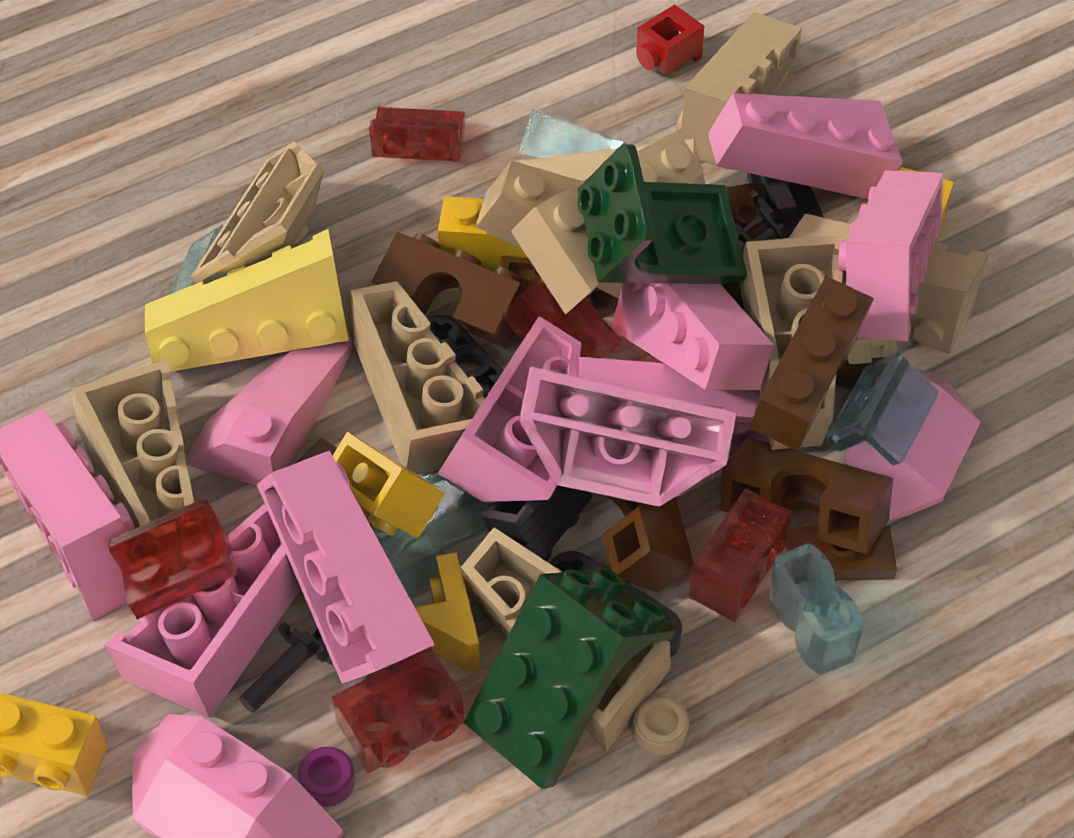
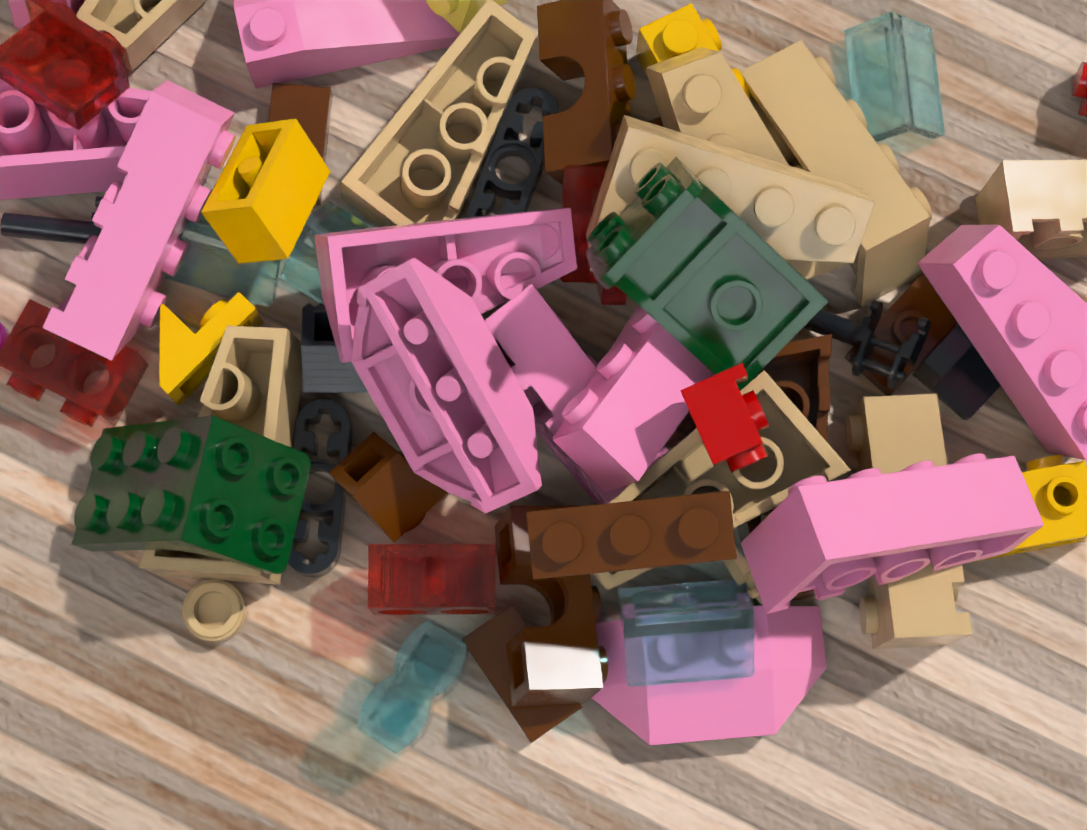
camera: 55 degrees right, 25 degrees up
(769, 268) = (727, 419): none -> red brick

